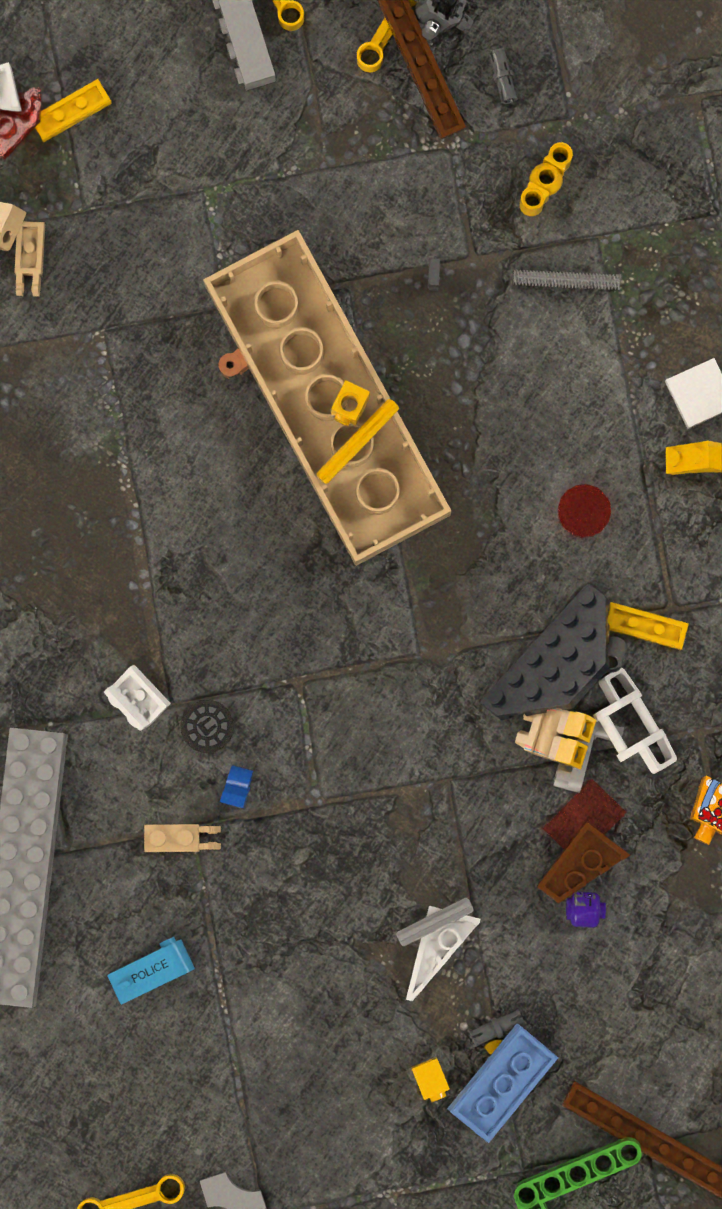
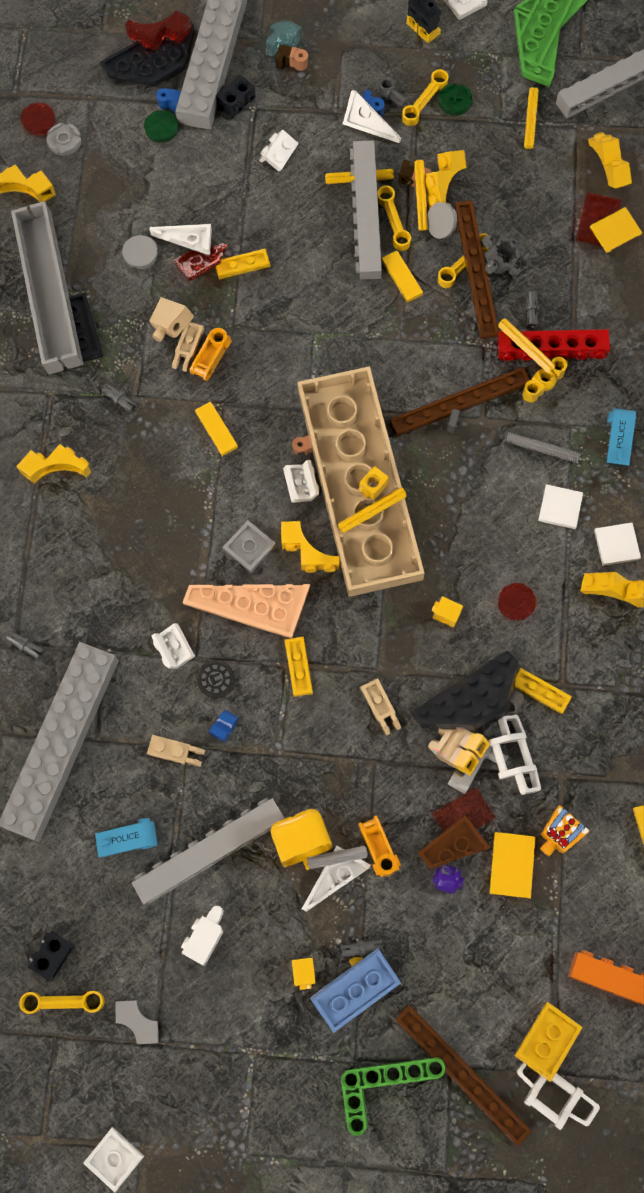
camera: 15 degrees right, 10 degrees down
(65, 262) = (210, 353): none -> light orange piece
(104, 1149) = (55, 959): none -> black brick
(105, 370) = (216, 429): none -> yellow tile
(200, 528) = (249, 546): none -> light grey tile
(240, 609) = (260, 606): none -> light nougat wing
(246, 418) = (301, 482): none -> white bracket
(264, 958) = (207, 852): none -> light grey brick
(290, 526) = (310, 557): none -> yellow arch
(291, 1069) = (205, 936): none -> white hinge
(305, 71) = (402, 276): none -> yellow tile
(313, 679) = (298, 666): none -> yellow tile
(380, 910) = (300, 837): none -> yellow piece
(435, 241) = (460, 401): none -> reddish brown tile
(436, 702) = (380, 704): none -> tan hinge
(484, 892) = (378, 846): none -> light orange piece
(493, 551) = (447, 611): none -> yellow brick
(509, 138) = (526, 345): none -> yellow axle
(606, 98) = (560, 338): none -> red brick
(611, 359) = (560, 506): none -> white tile
(663, 868) = (512, 865): none -> yellow tile
(671, 235) = (621, 435): none -> dark azure door

